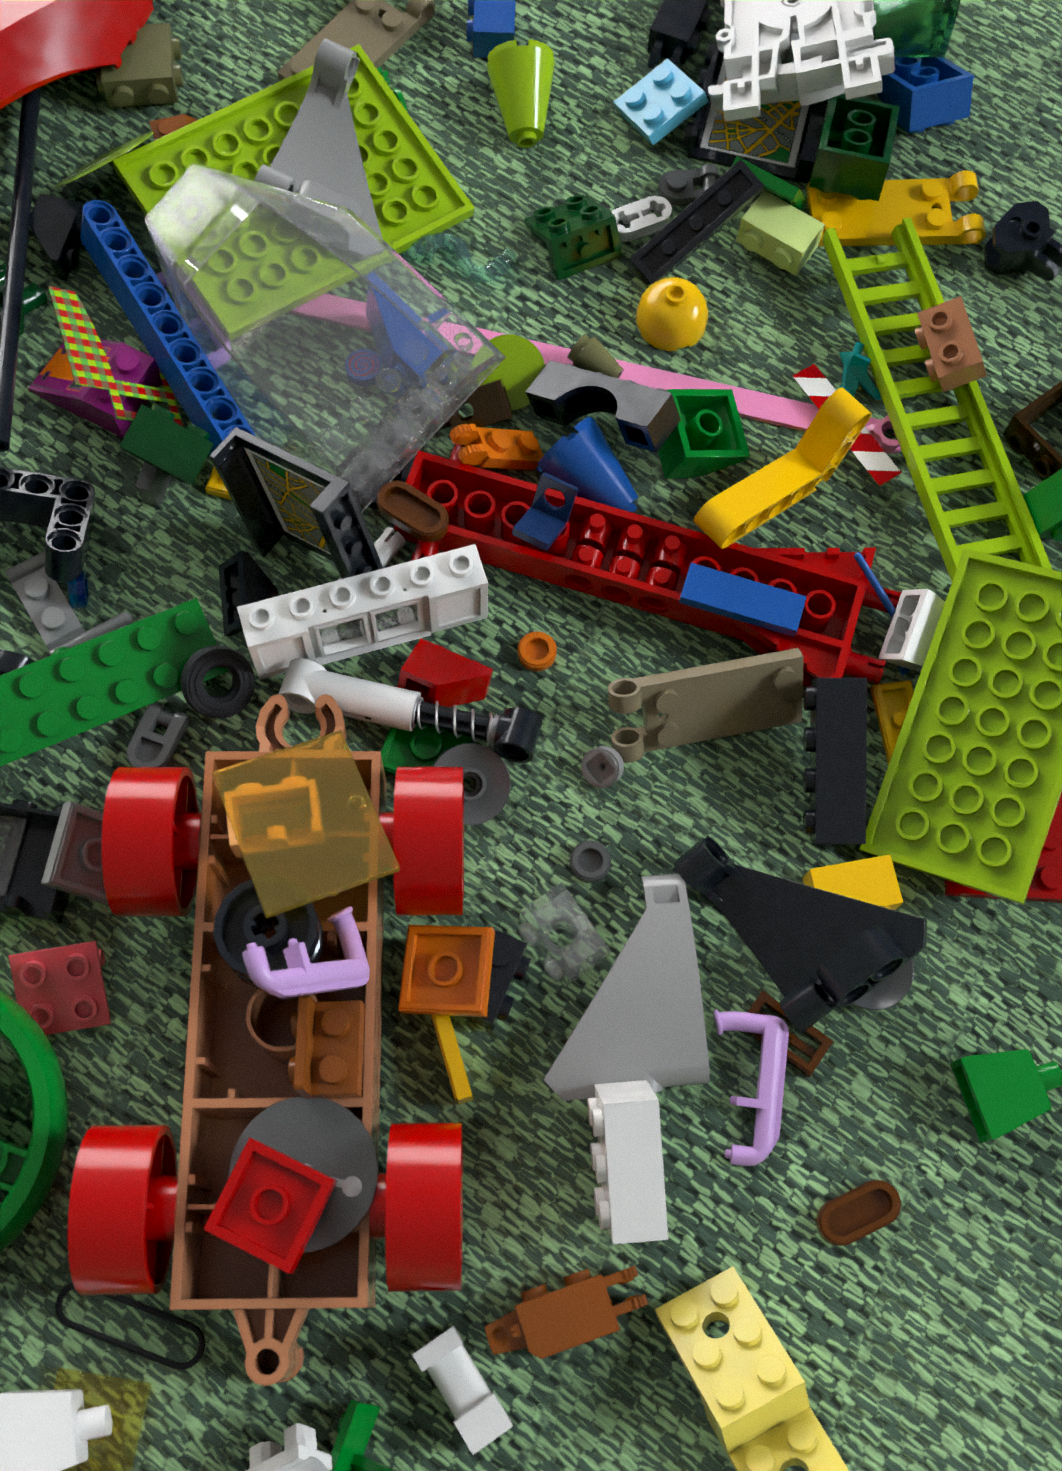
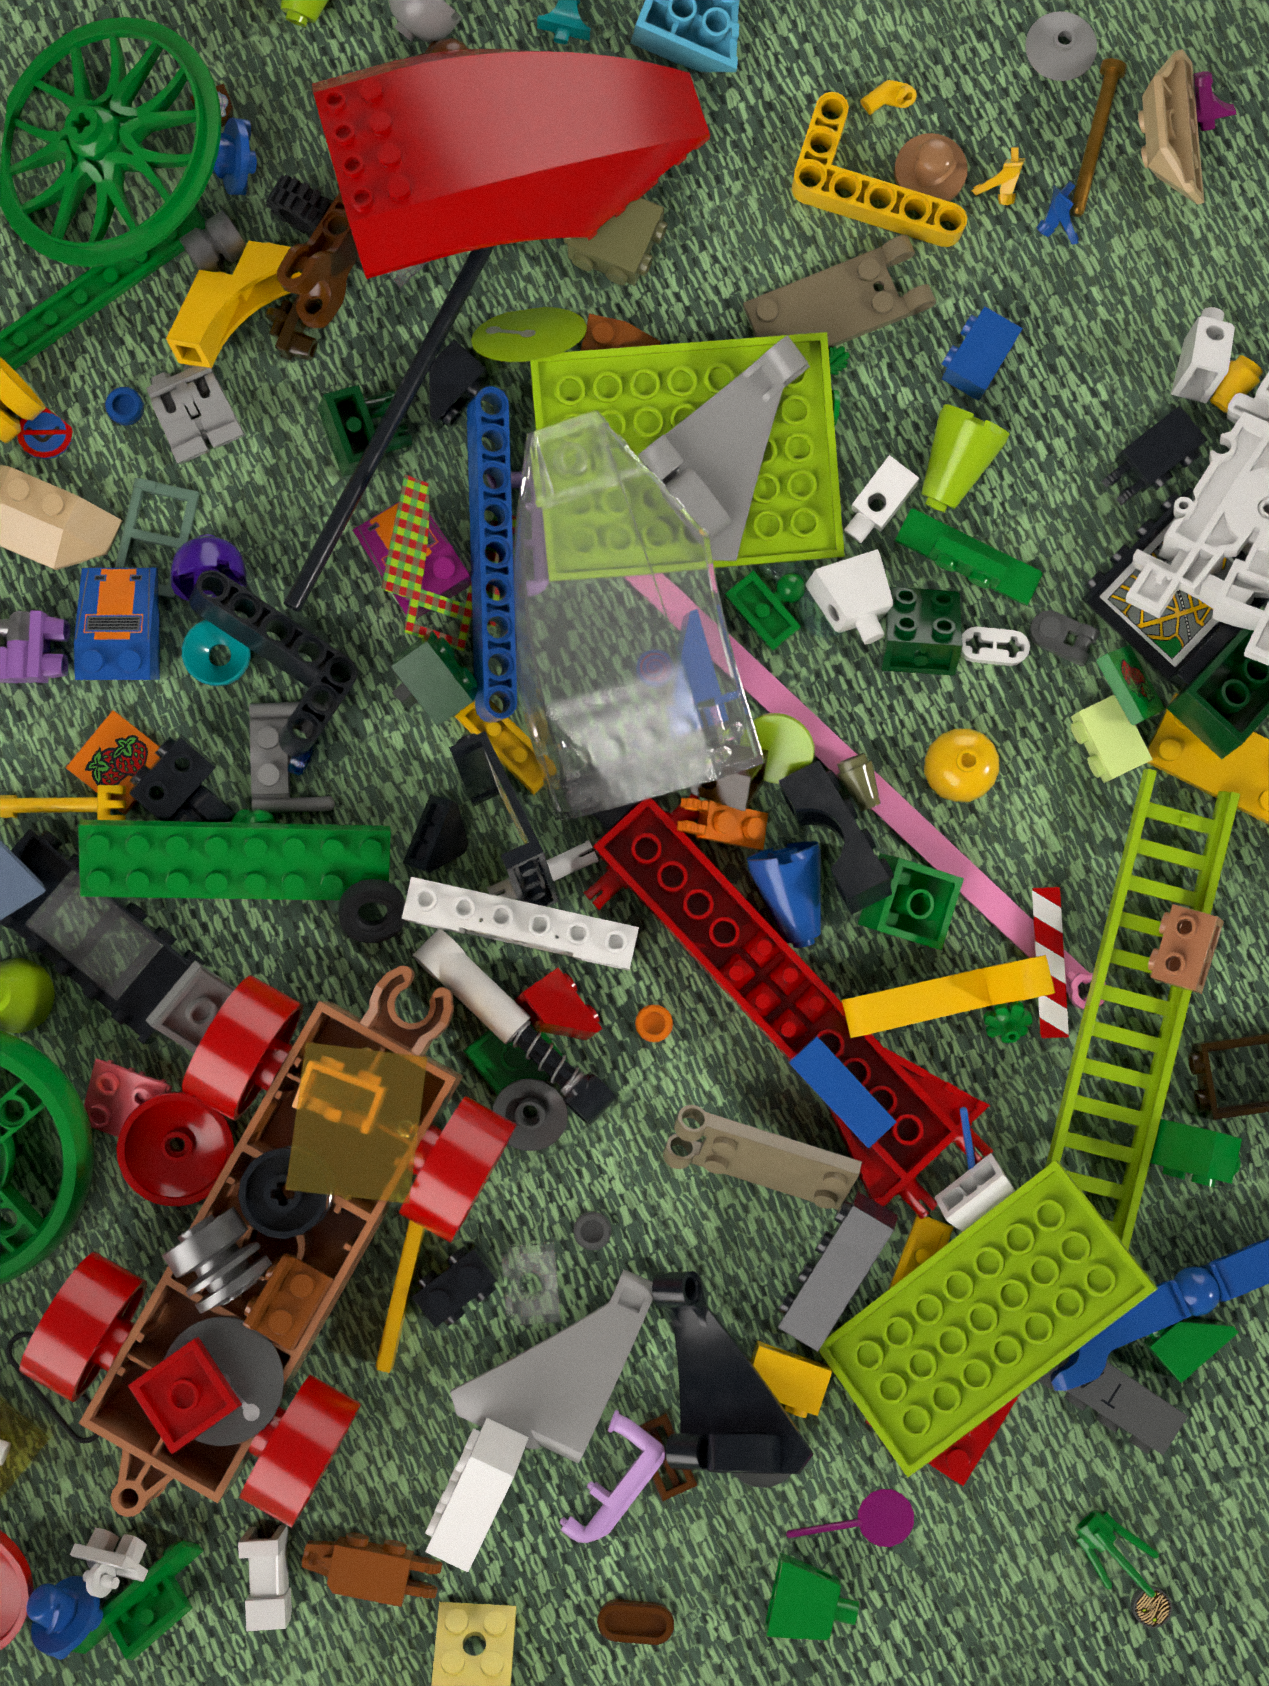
camera: 30 degrees right, 15 degrees up
(108, 978) = (167, 1173): none -> red dish
(150, 748) = (290, 940): dark grey plate -> none
(225, 1033) = (216, 1258): none -> flat silver wheel
(307, 977) = (304, 1254): lavender piece -> none
(412, 511) = (610, 854): reddish brown tile -> none
(447, 280) = (765, 609): none -> green plate
(447, 970) = (420, 1270): orange tile -> none
(479, 153) = (891, 485): none -> white torso
(499, 226) = (853, 594): none -> white torso
(544, 521) = (715, 927): dark blue bracket -> none
(577, 163) = (968, 556): none -> green bracket
(602, 766) = (647, 1158): light grey tile -> none
(660, 101) = (1085, 535): medium azure plate -> none
(697, 222) = (1035, 693): black plate -> none
(842, 488) = (1008, 1022): none -> green plant
(856, 372) = (1090, 916): teal piece -> none
(1020, 975) = (883, 1519): none -> magenta piece

